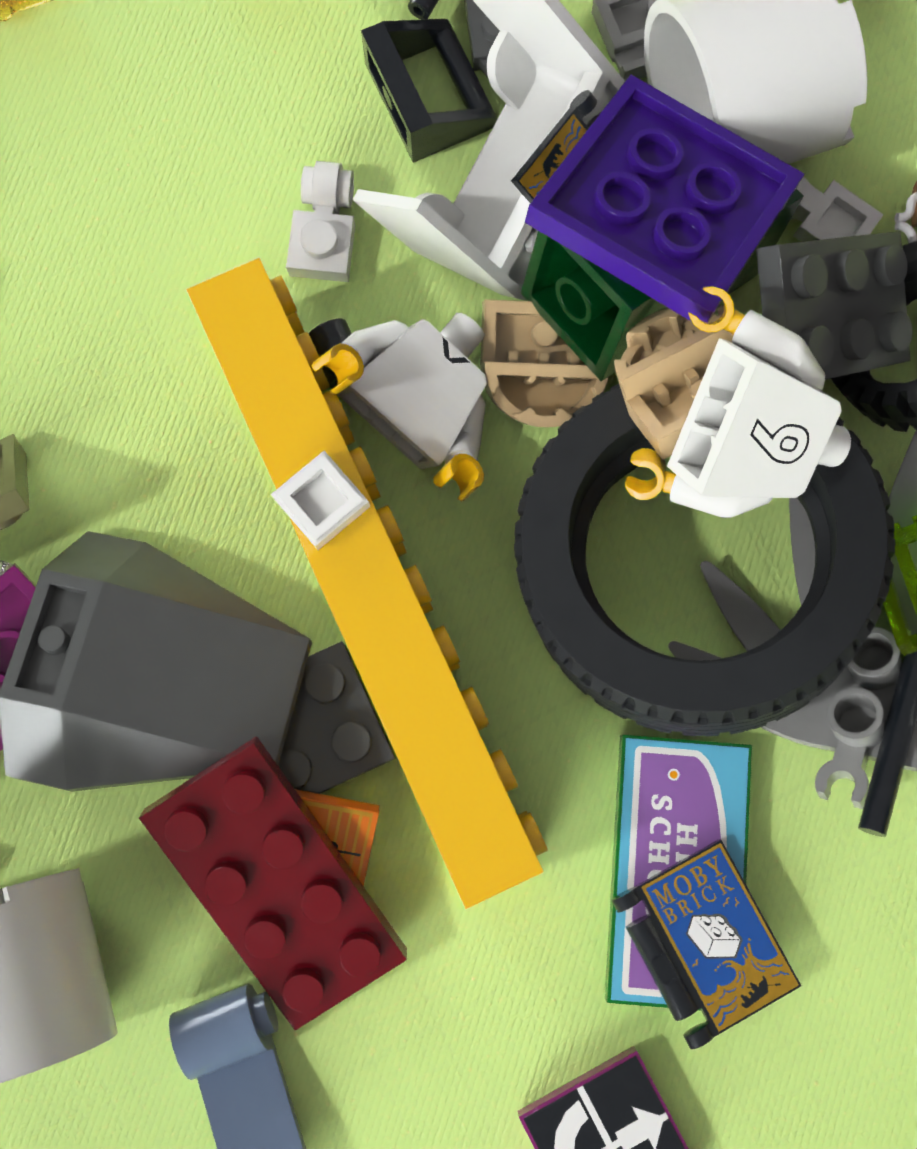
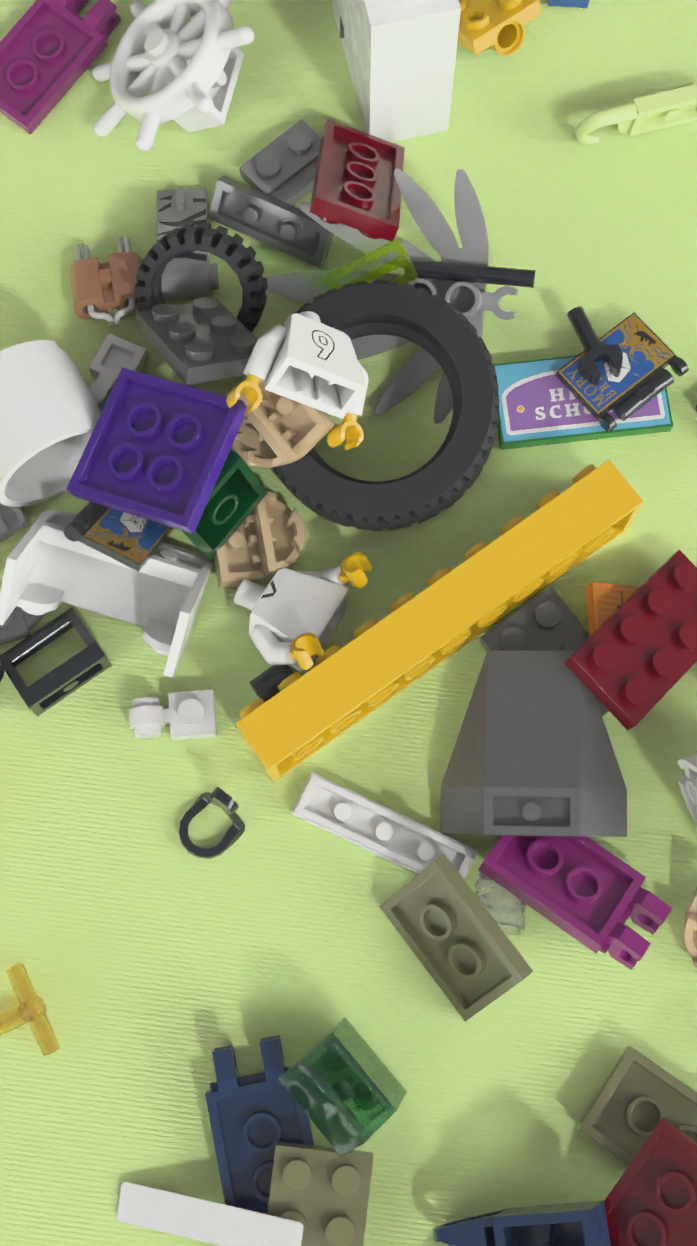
camera: 100 degrees left, 5 degrees down
(109, 457) = (377, 828): none -> white tile
(178, 251) = (229, 806): none -> black piece
(321, 500) = (403, 640): white tile -> none
(749, 904) = (593, 348): none -> black bar

